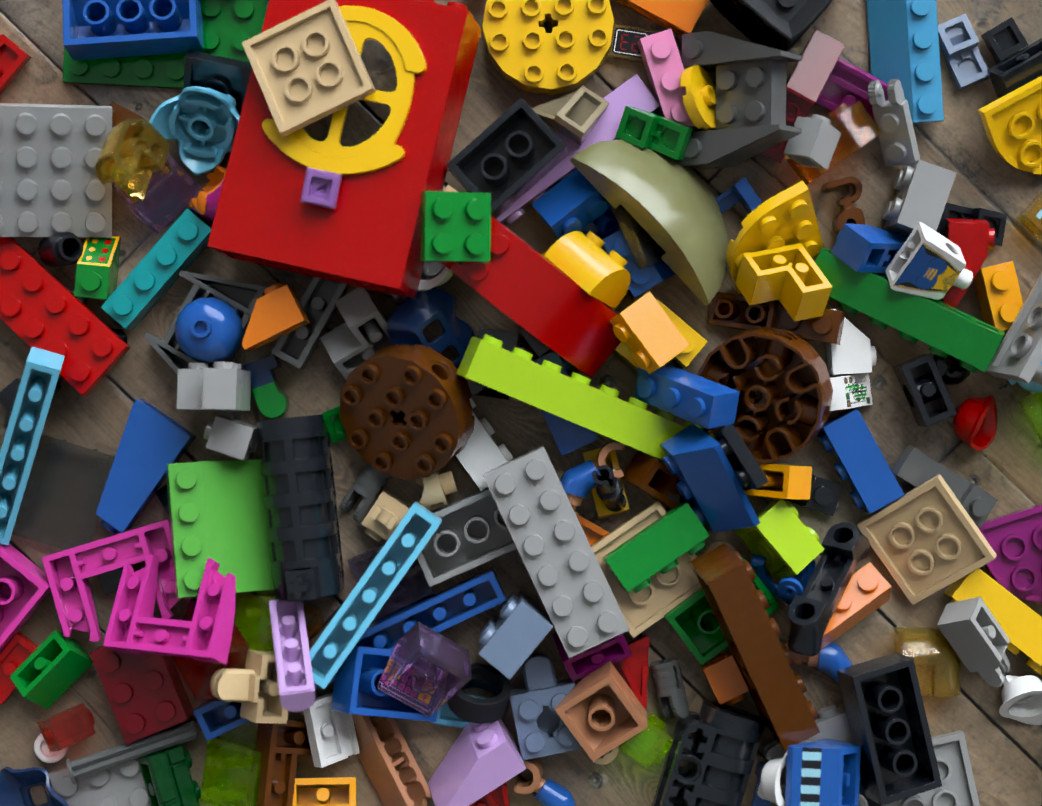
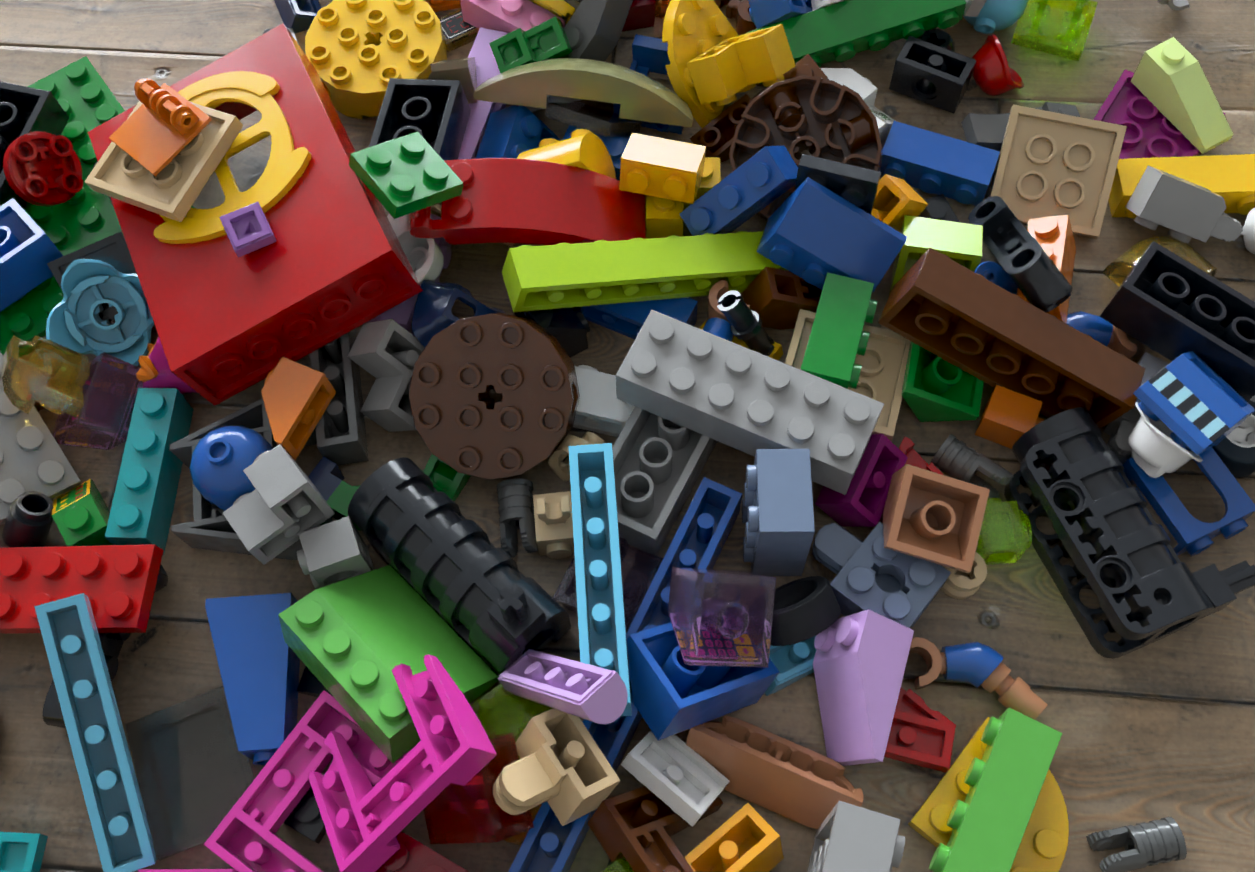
camera: 40 degrees left, 25 degrees down
(315, 52) = (159, 126): none -> orange hinge

